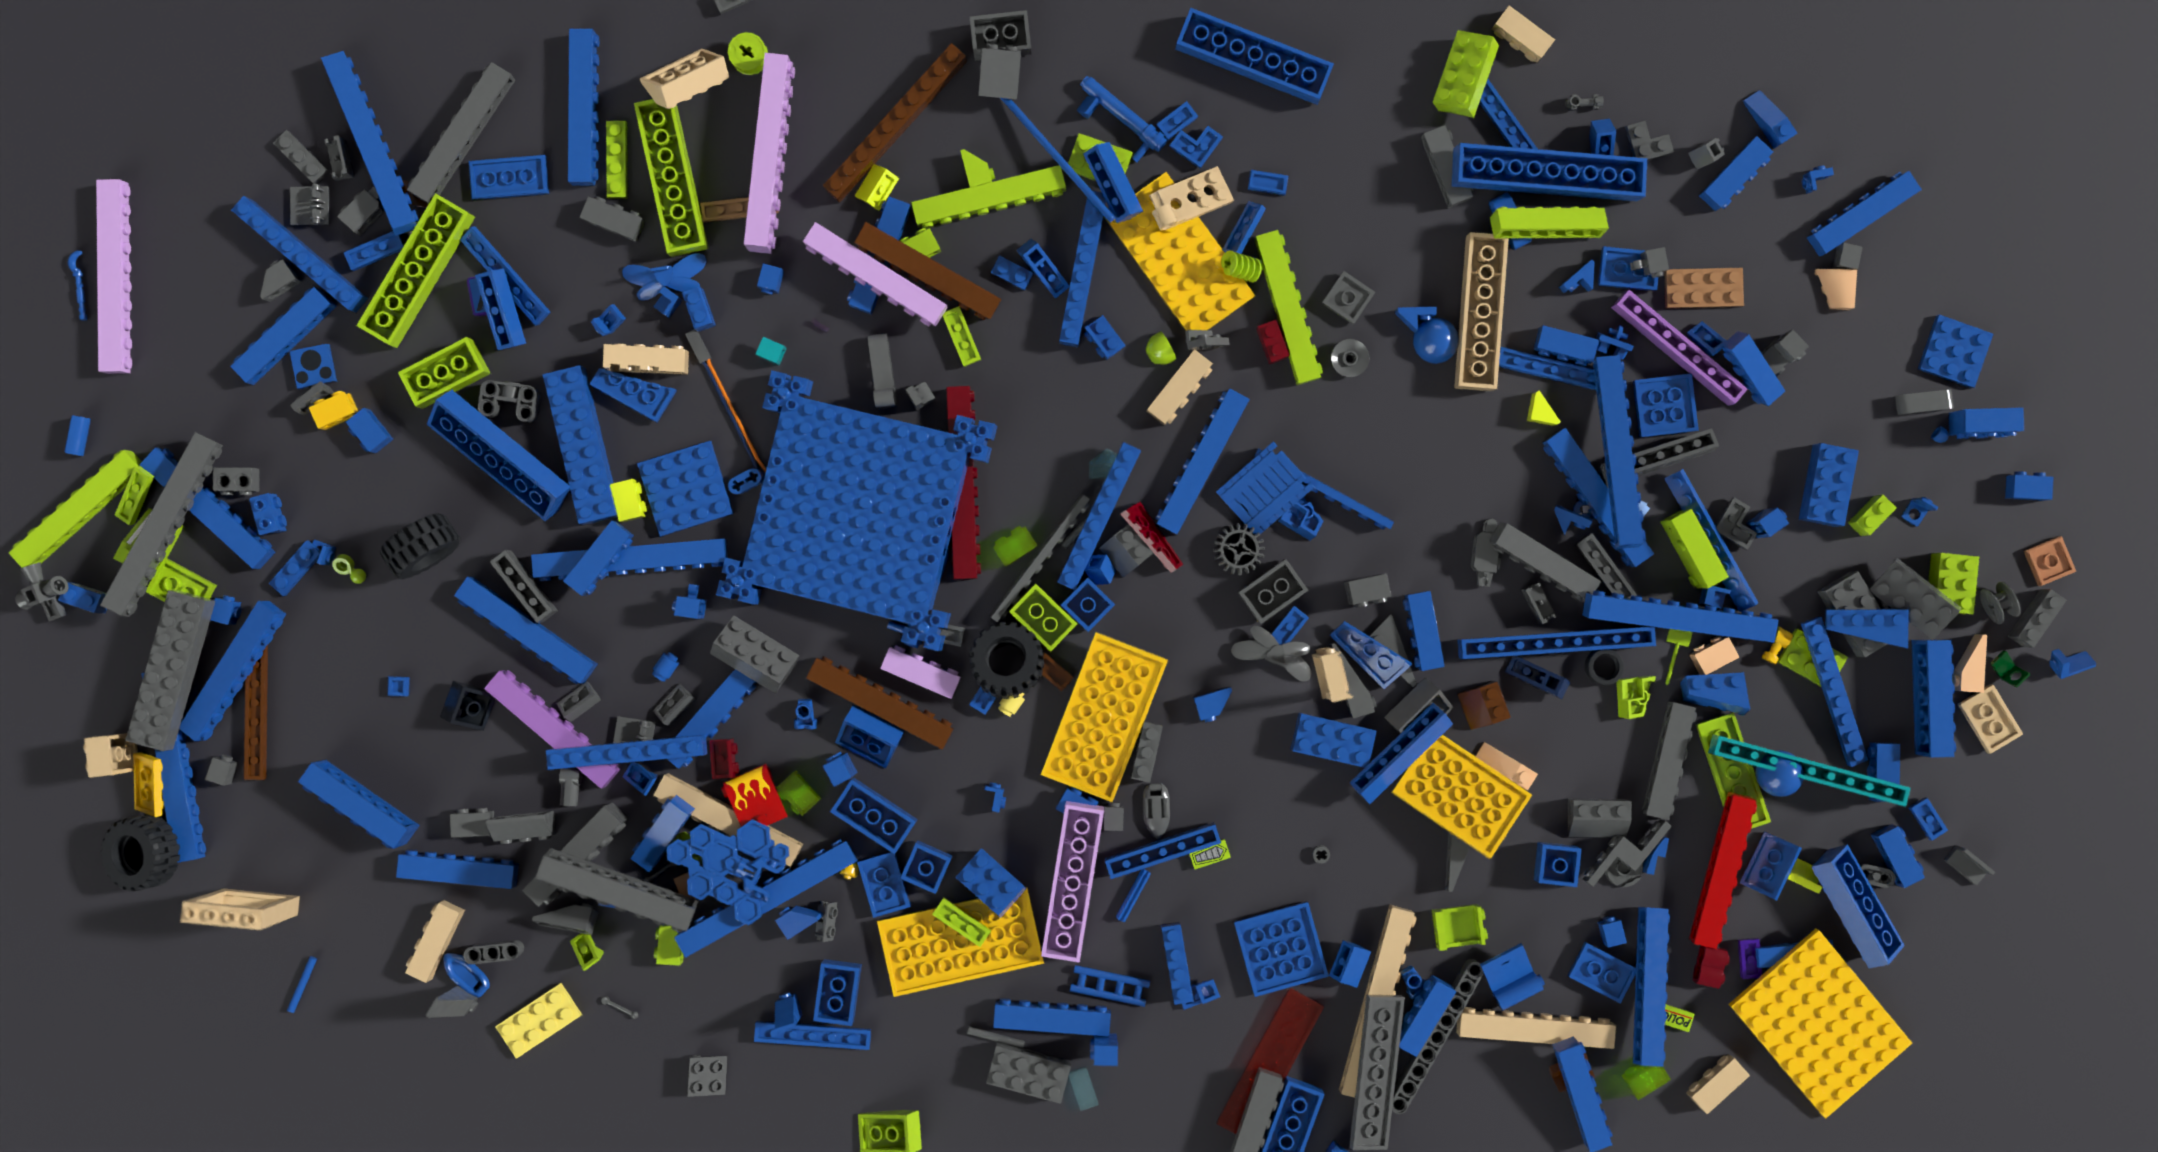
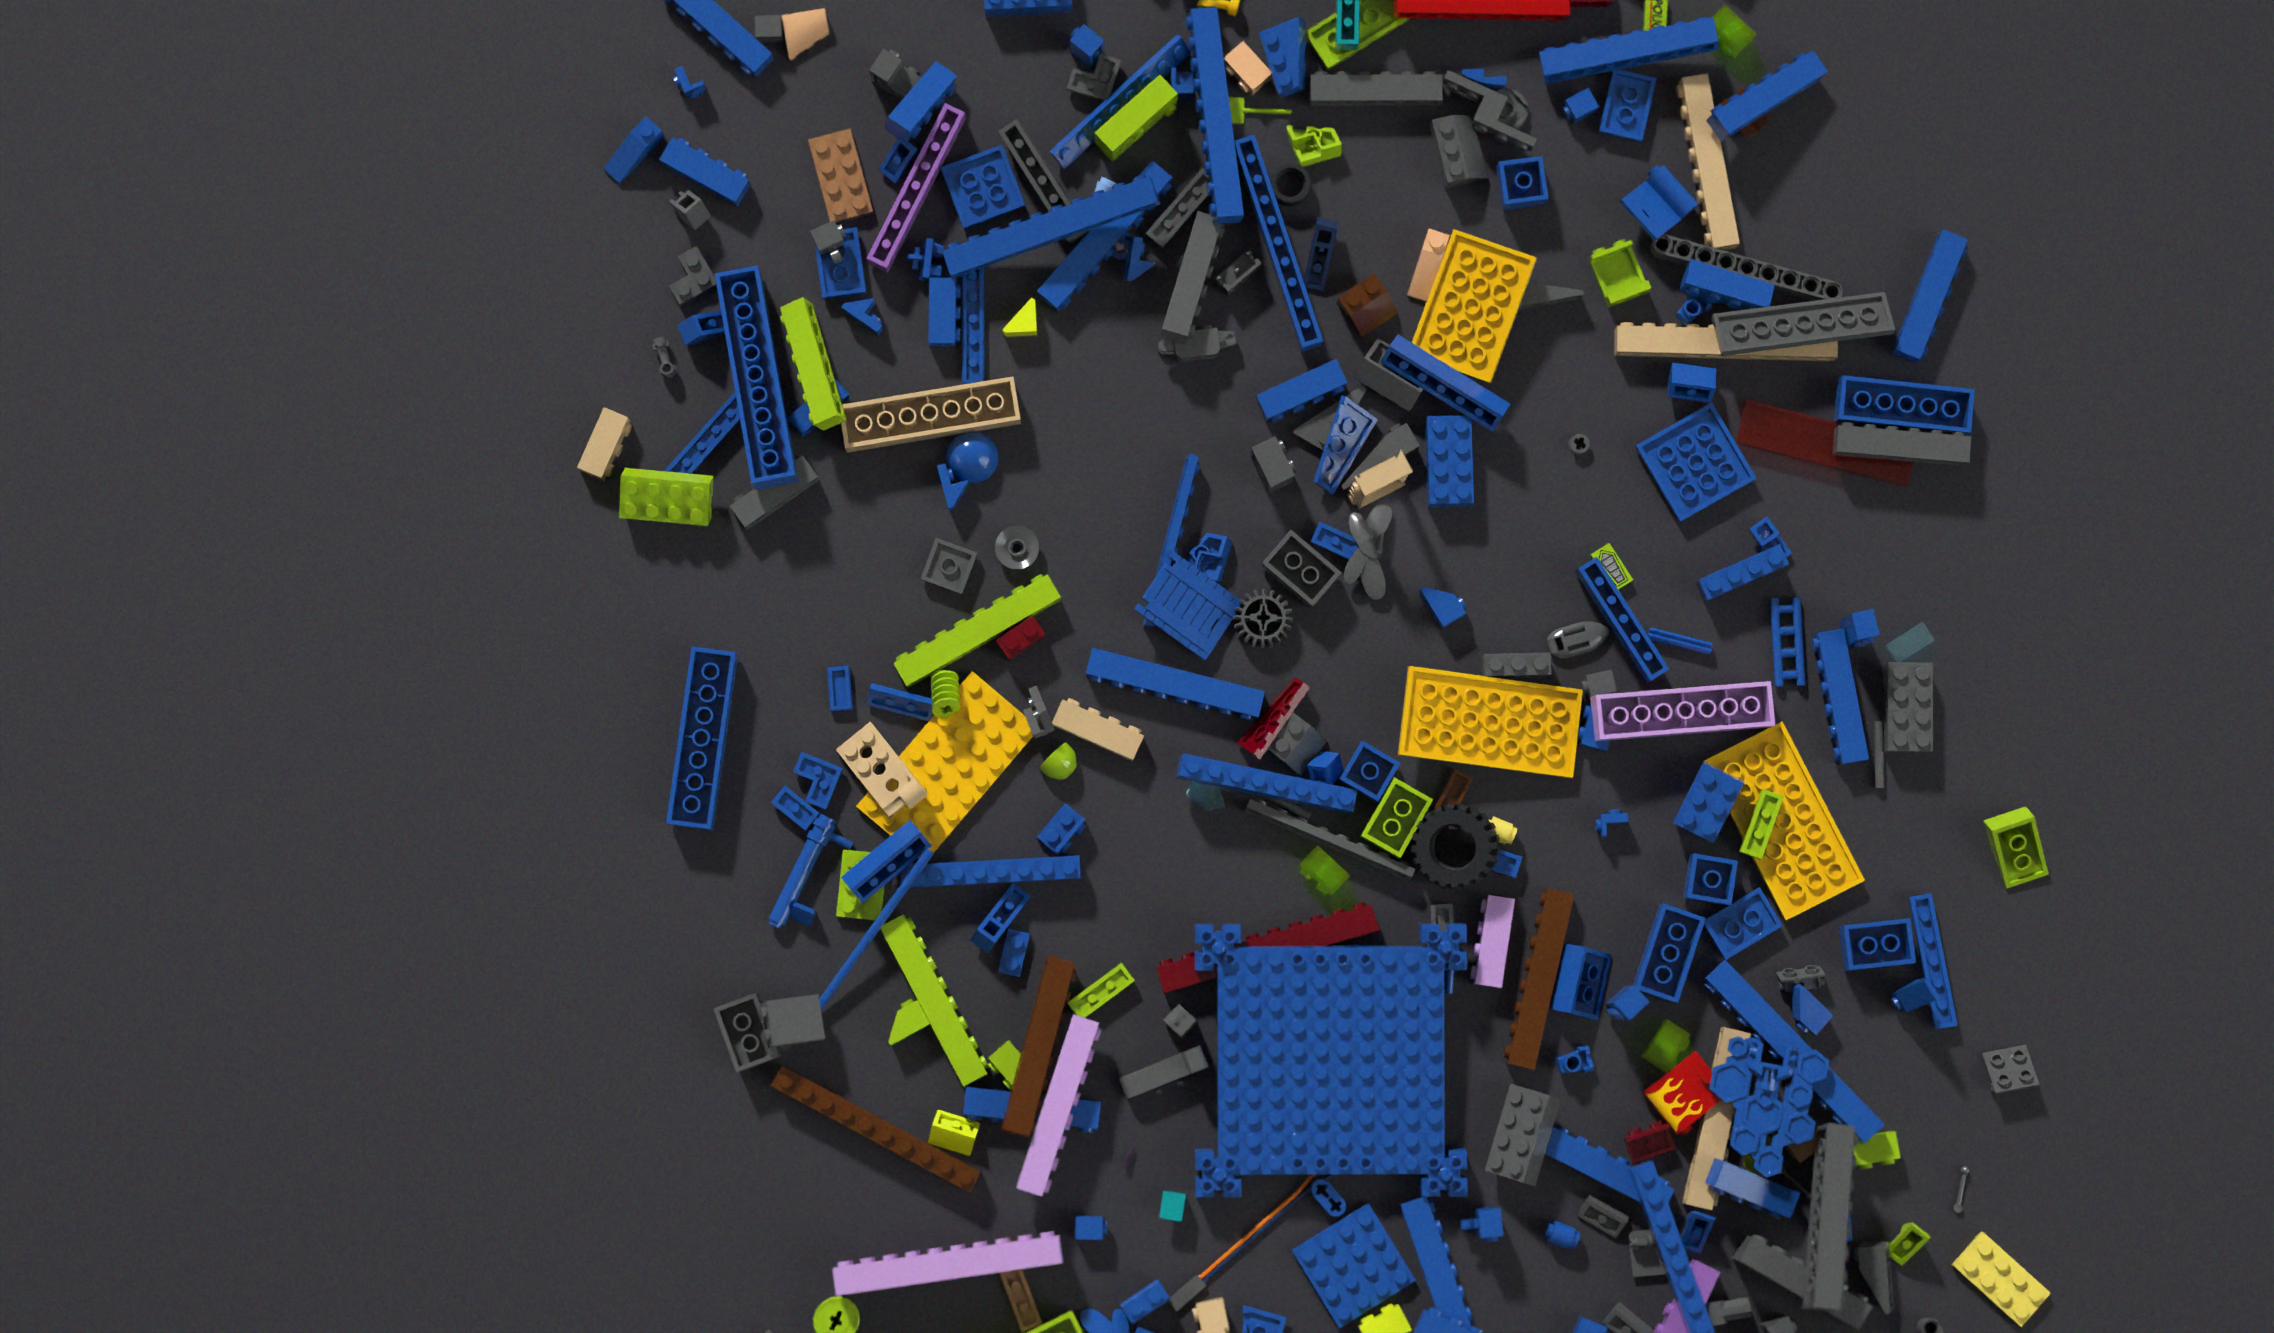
camera: 110 degrees left, 5 degrees down
(850, 871) = (1738, 964): yellow piece -> none

